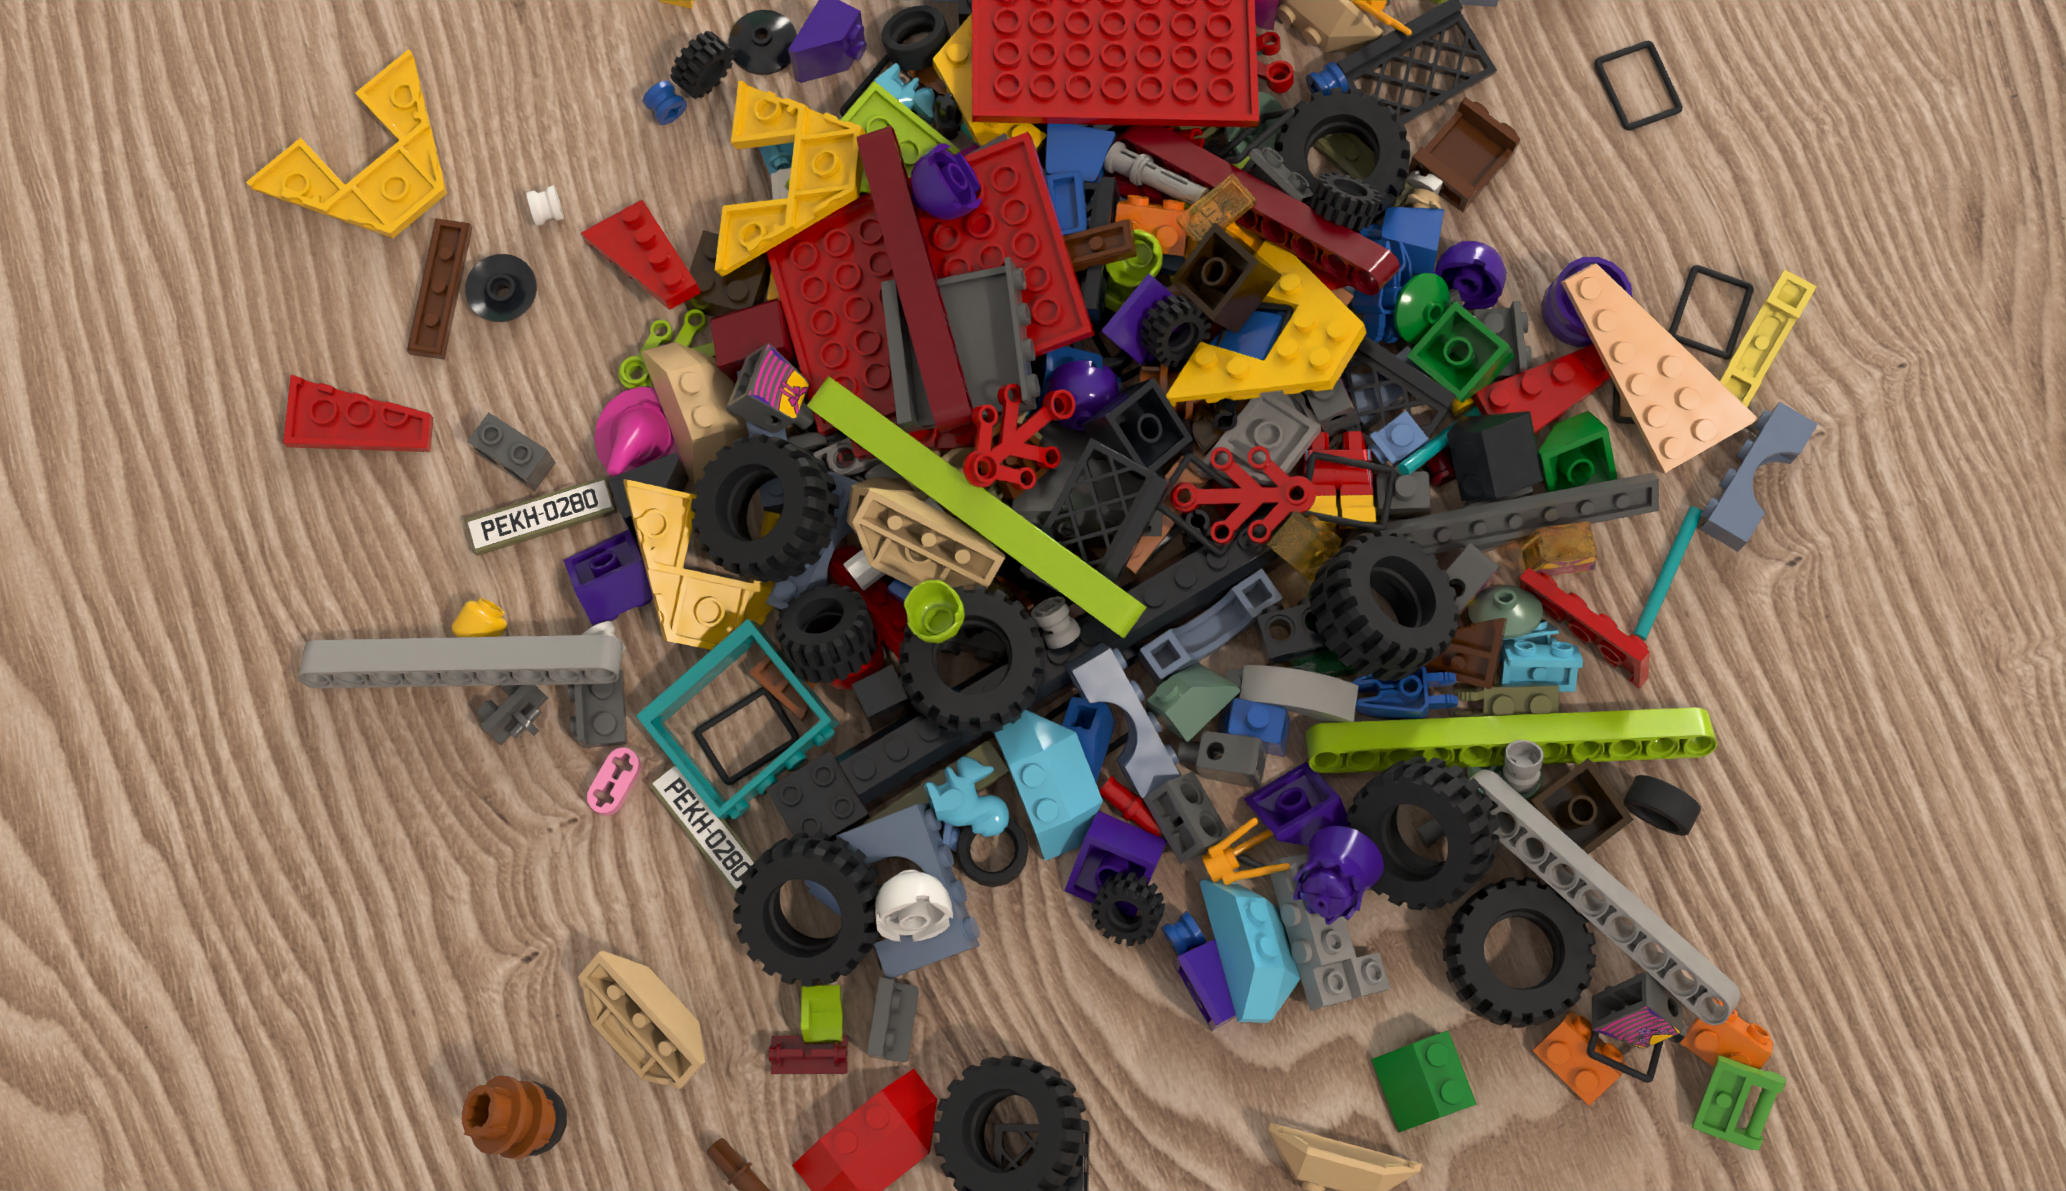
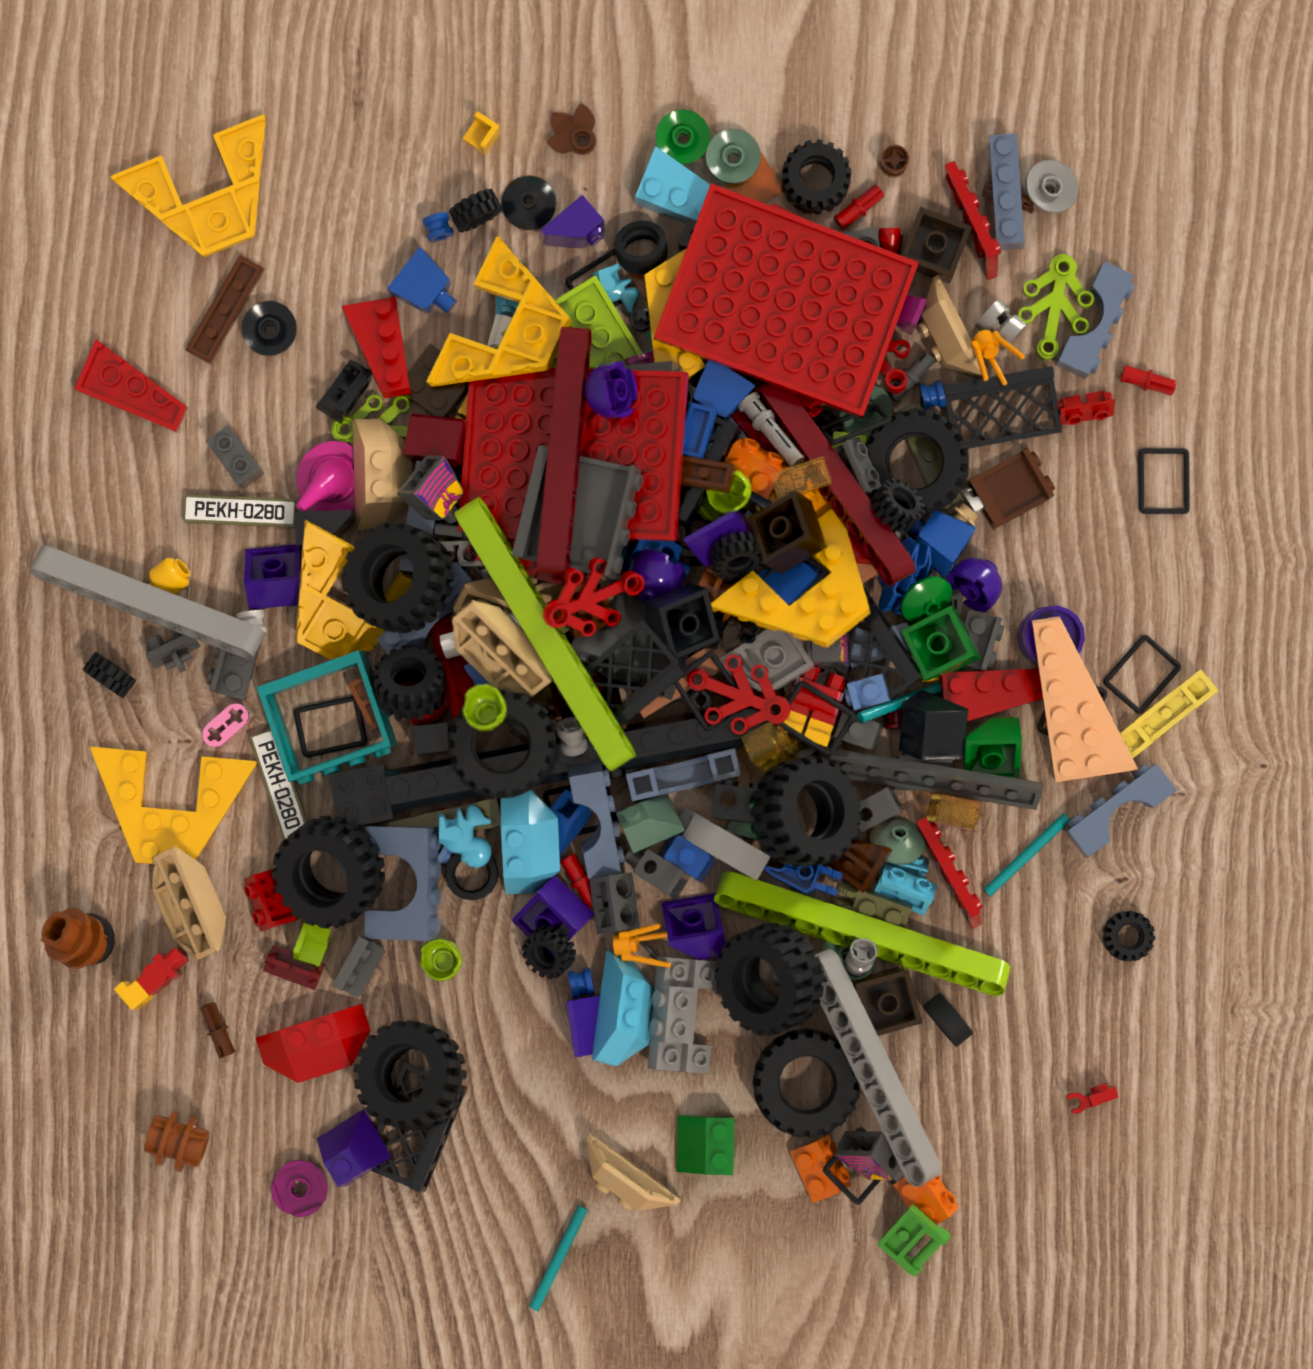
camera: 15 degrees right, 10 degrees up
(443, 769) = (109, 674): none -> black tyre
(545, 205) = (322, 275): white wheel -> none
(568, 944) = (158, 830): none -> yellow wing
(621, 326) = (345, 391): none -> black hinge
(632, 1136) = (153, 979): none -> red hips
(669, 173) = (422, 284): none -> blue torso
(744, 982) = (266, 903): none -> red bracket
(912, 906) = (398, 897): white cylinder -> none
(993, 971) = (440, 959): none -> lime hair
(1298, 58) = (914, 373): none -> dark grey pin
(1338, 872) = (699, 985): dark purple hat -> none
(1523, 30) = (1098, 407): none -> red hinge
(1852, 609) = (1145, 940): none -> black tyre
(1887, 830) = (1098, 1095): none -> red plate

